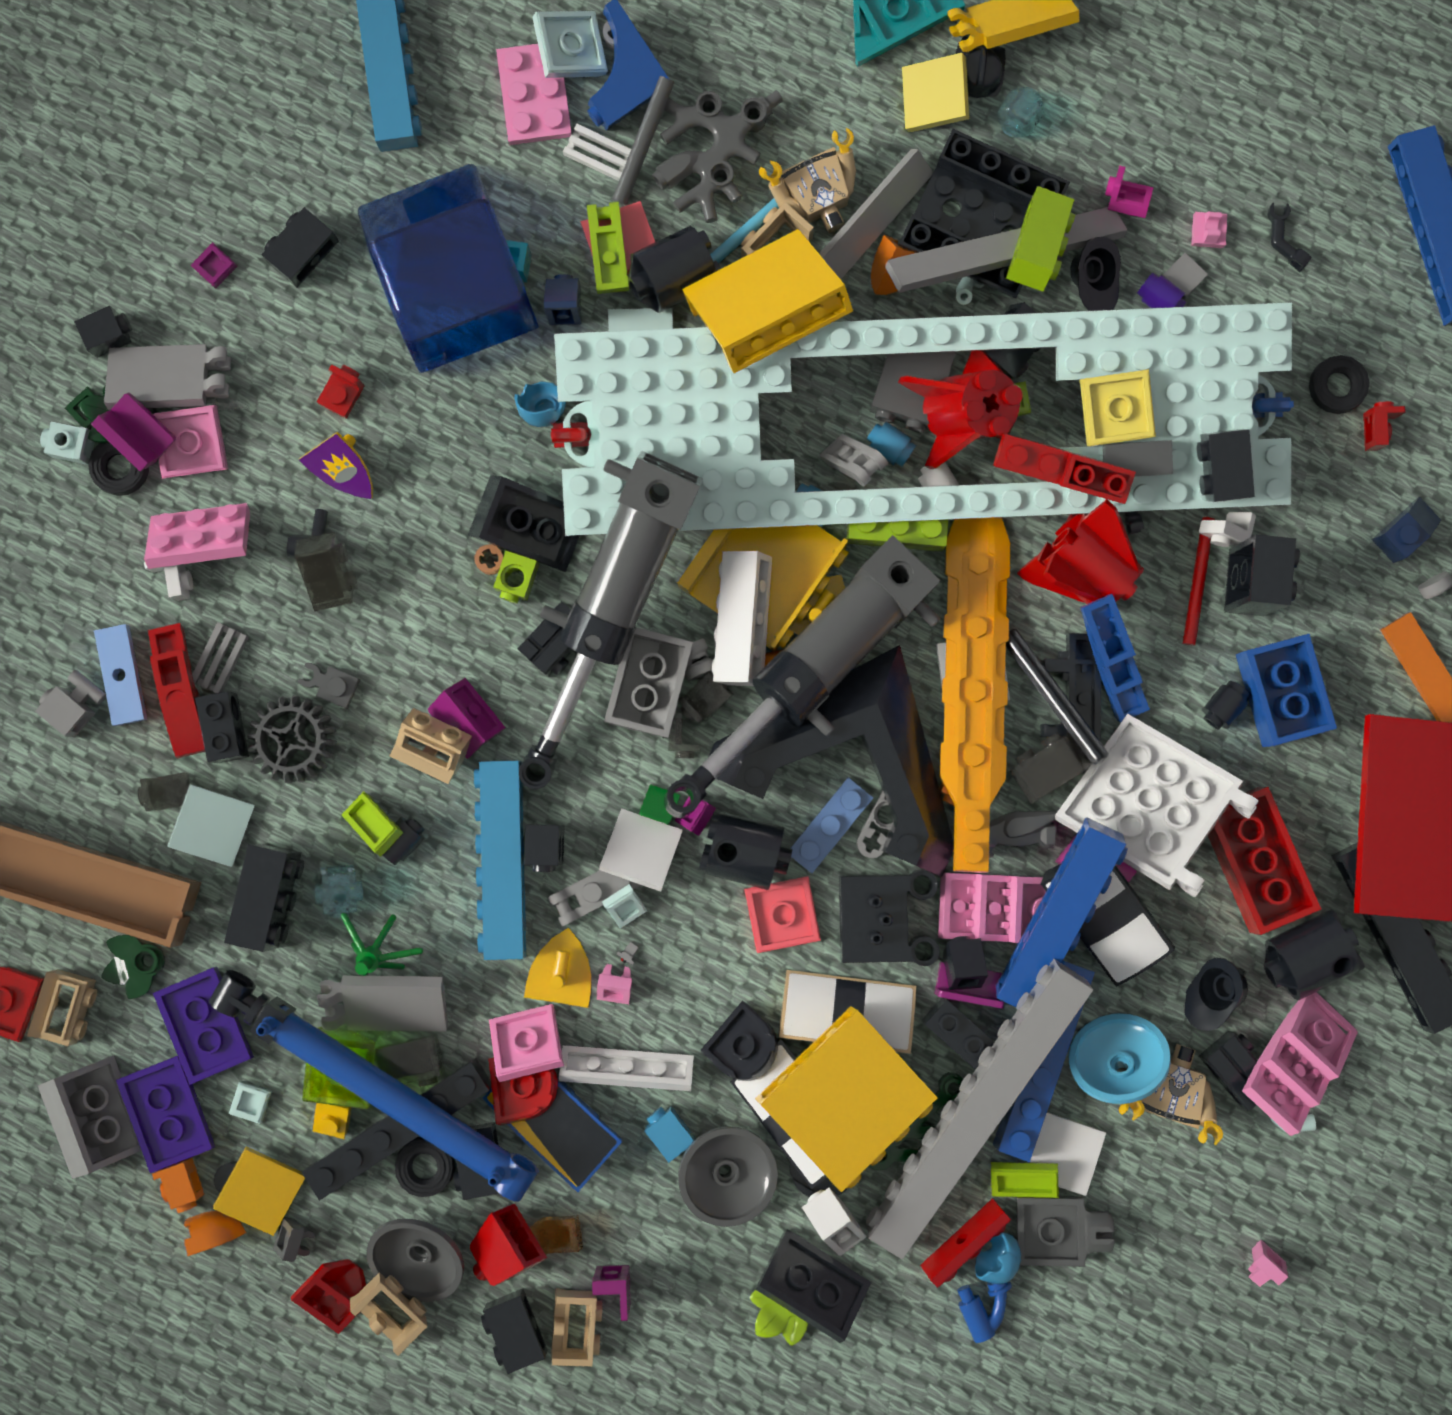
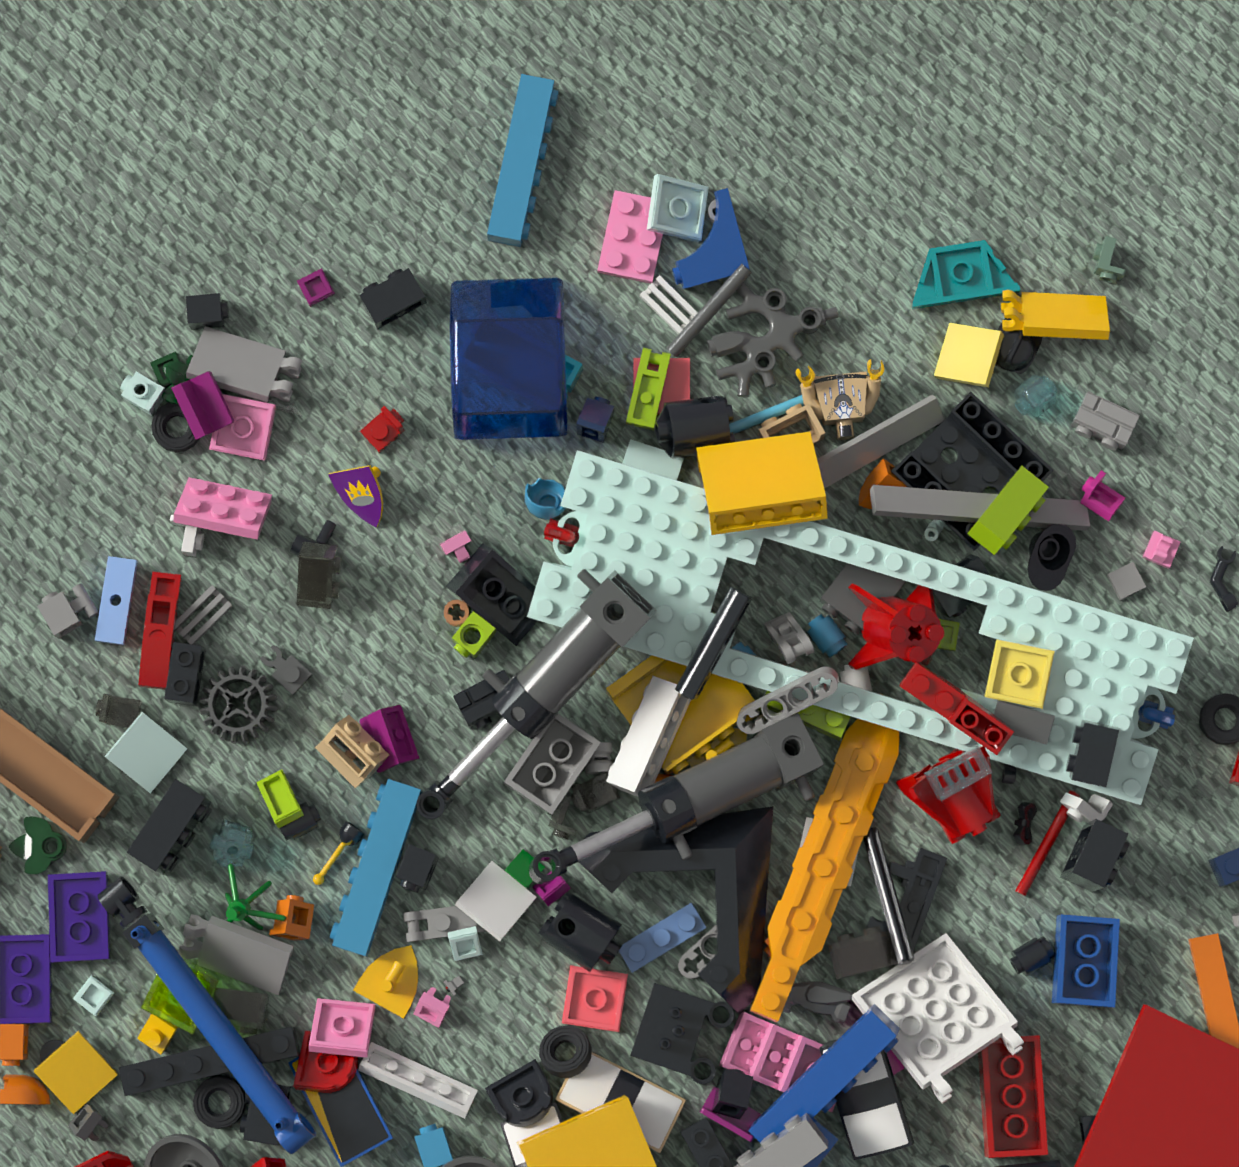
camera: 20 degrees right, 5 degrees down
(436, 945) = (298, 919): none -> orange brick
(460, 836) = (348, 835): none -> hinge
(463, 487) = (456, 545): none -> bright pink tile
(758, 968) = (577, 1063): none -> black tyre
(776, 492) = (713, 643): none -> black brick
(882, 529) = (786, 698): none -> light grey beam
(1081, 531) = (942, 769): none -> clear light blue slope
(1103, 114) = (1104, 421): none -> light grey brick
(1114, 657) = (949, 881): blue slope -> none
(1161, 293) = (1100, 591): dark purple brick -> none
(1166, 556) = (1026, 813): none -> black piece

